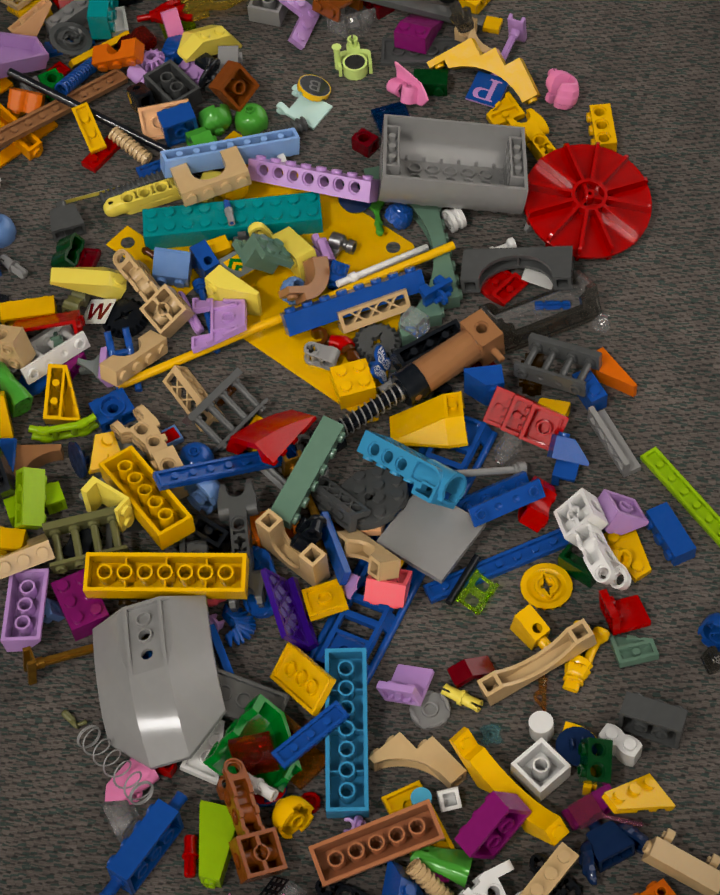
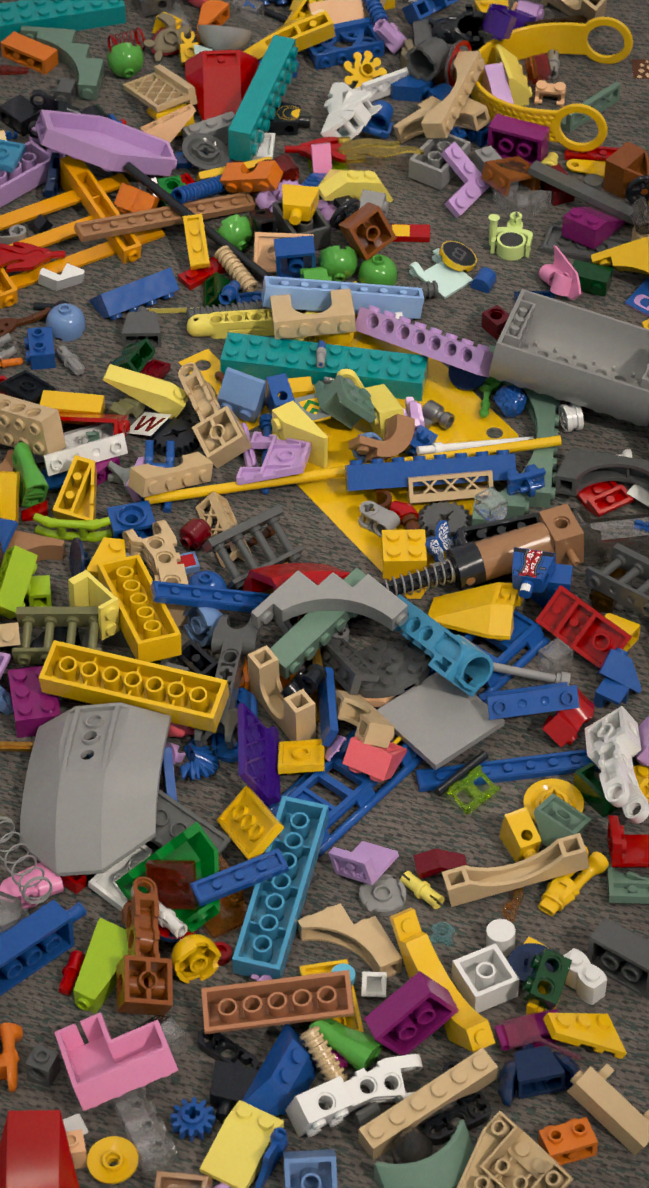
camera: 10 degrees right, 10 degrees down
(26, 420) = (41, 508): none -> red piece
(50, 189) = (135, 294): none -> blue slope
(120, 109) = (236, 231): none -> bright green cylinder
(120, 169) = (213, 288): none -> dark green panel
(131, 169) = (229, 292): none -> blue pin
(167, 72) = (299, 202): none -> yellow torso
(170, 408) = (195, 533): none -> dark red head
(268, 73) = (411, 232): none -> red tile
(286, 454) = (302, 596): none -> light grey arch
(342, 104) = (484, 280): none -> blue brick
(470, 379) = (532, 570): none -> blue torso
(559, 606) = (558, 819): none -> sand green slope

